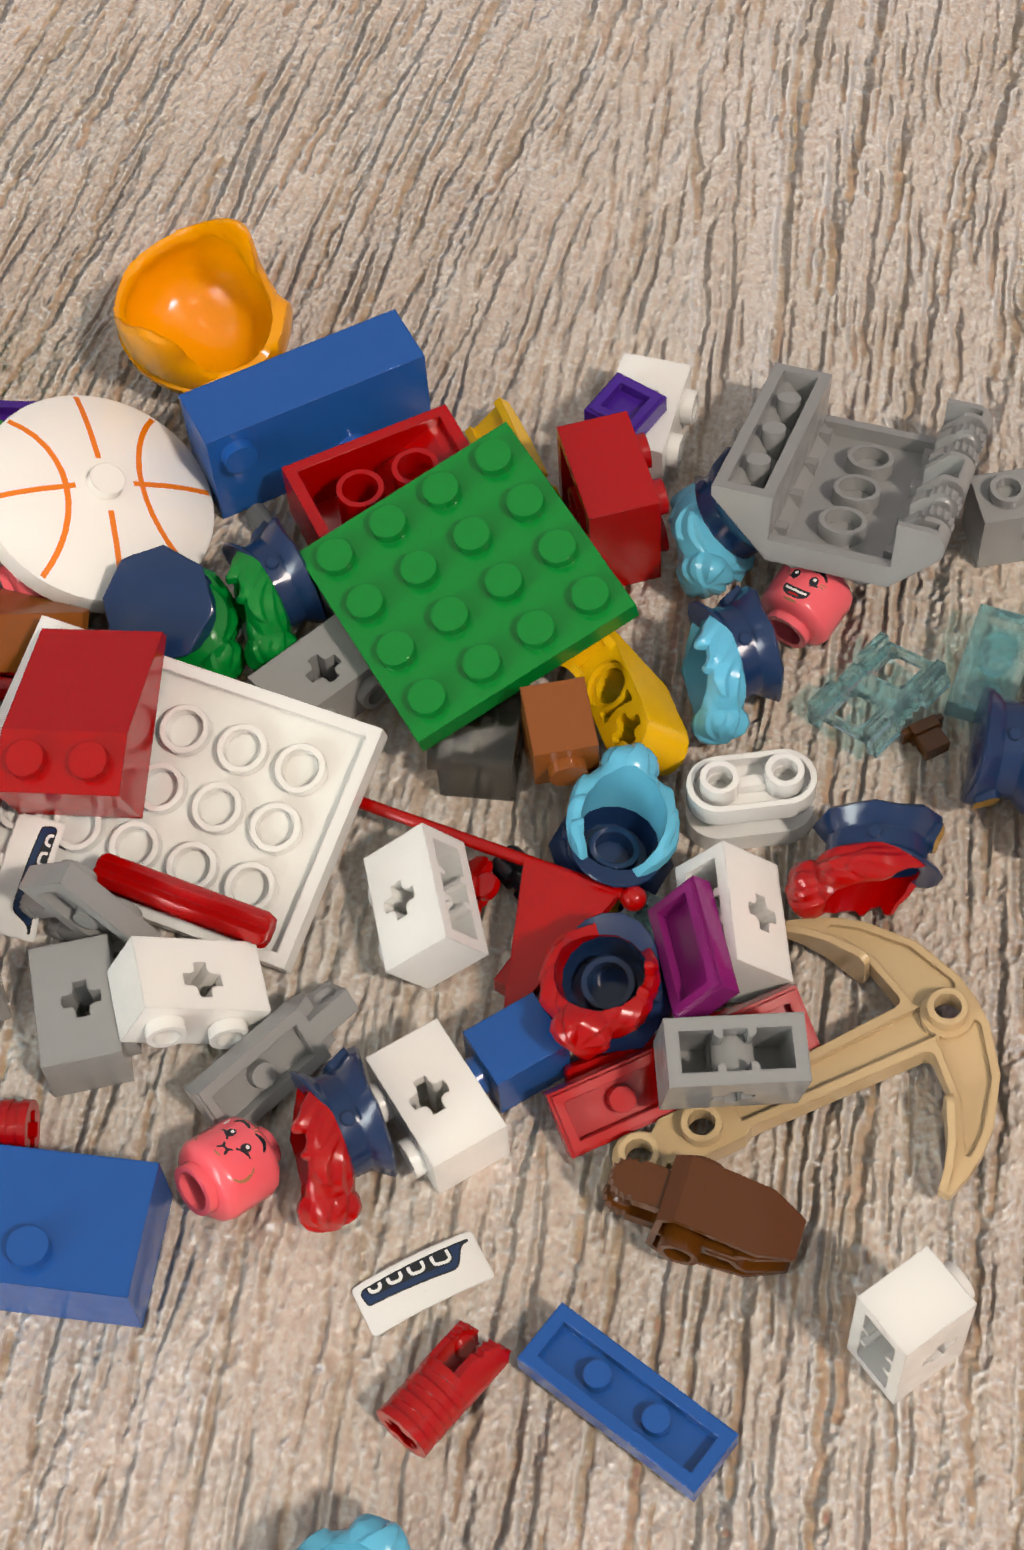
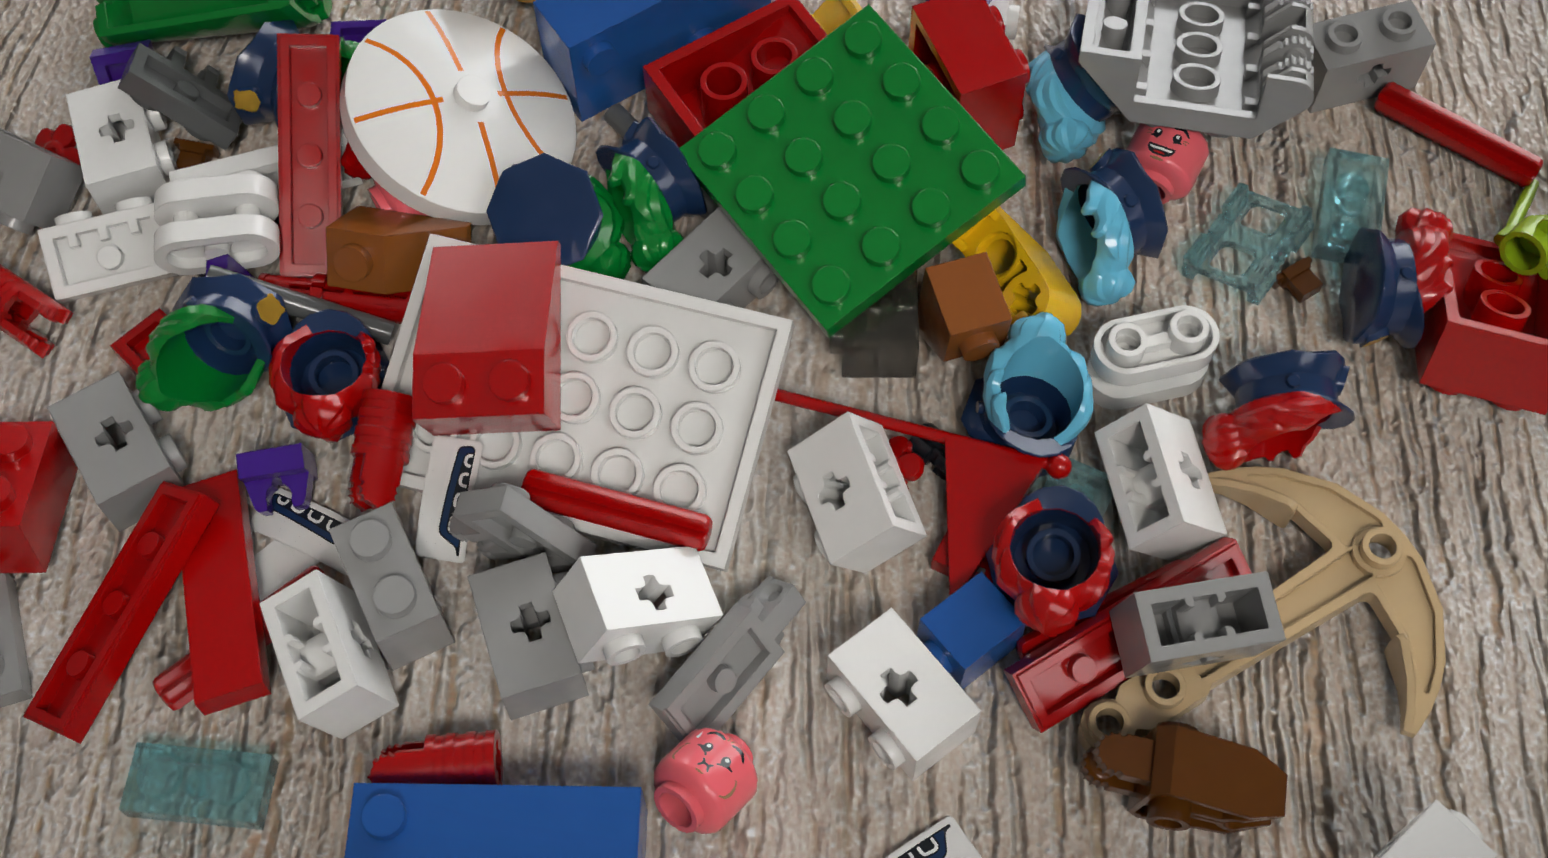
camera: 10 degrees left, 5 degrees up
(335, 1139) = (810, 738): piece -> none
(693, 950) = (1136, 514): magenta tile -> none

